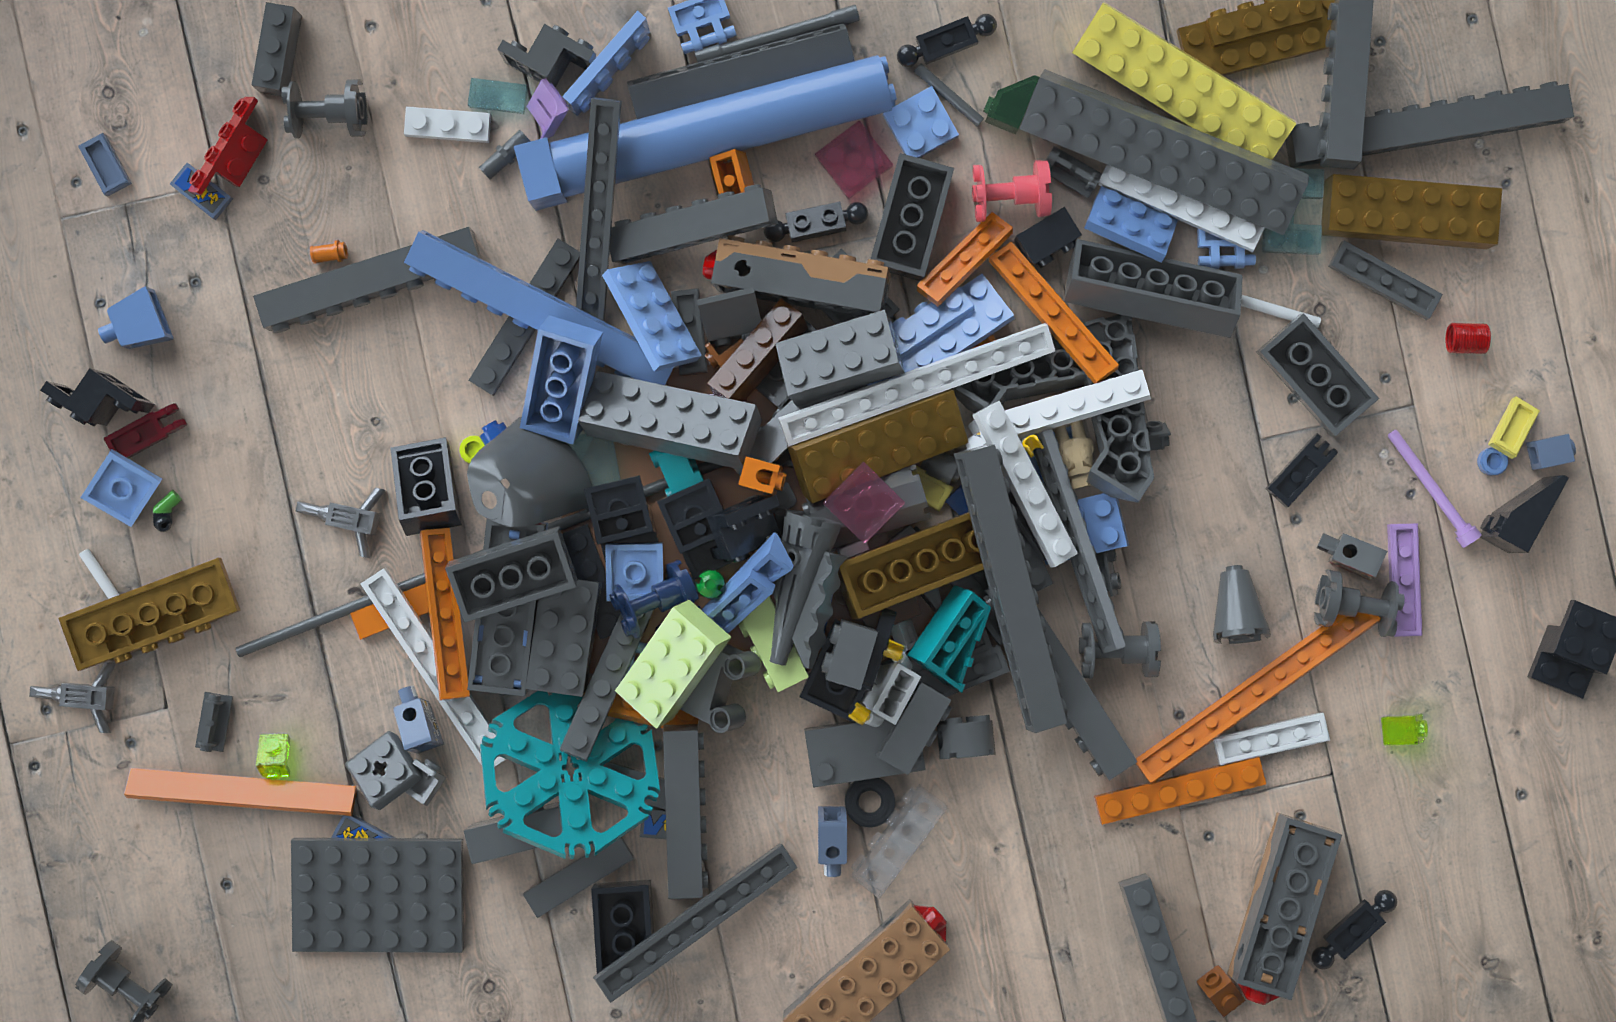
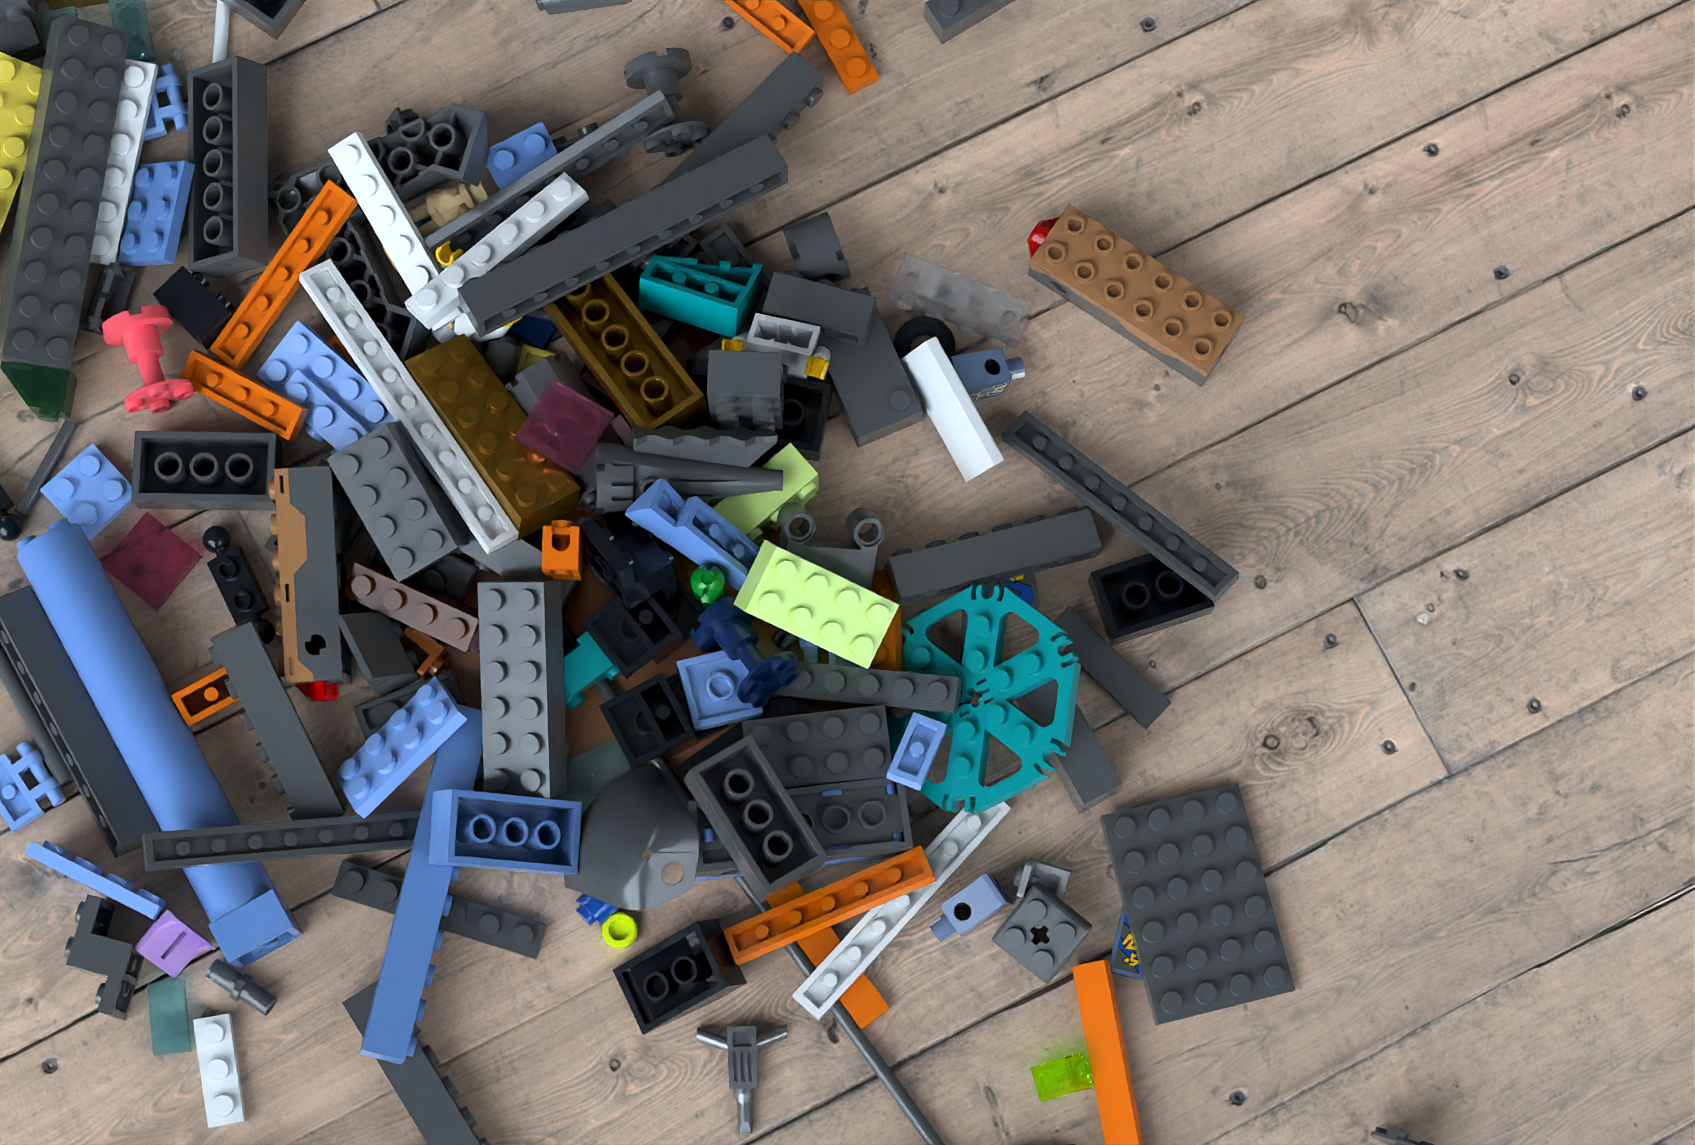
camera: 100 degrees left, 10 degrees down
(538, 712) = (916, 751): none -> light blue plate
(807, 810) = (951, 409): none -> white tile

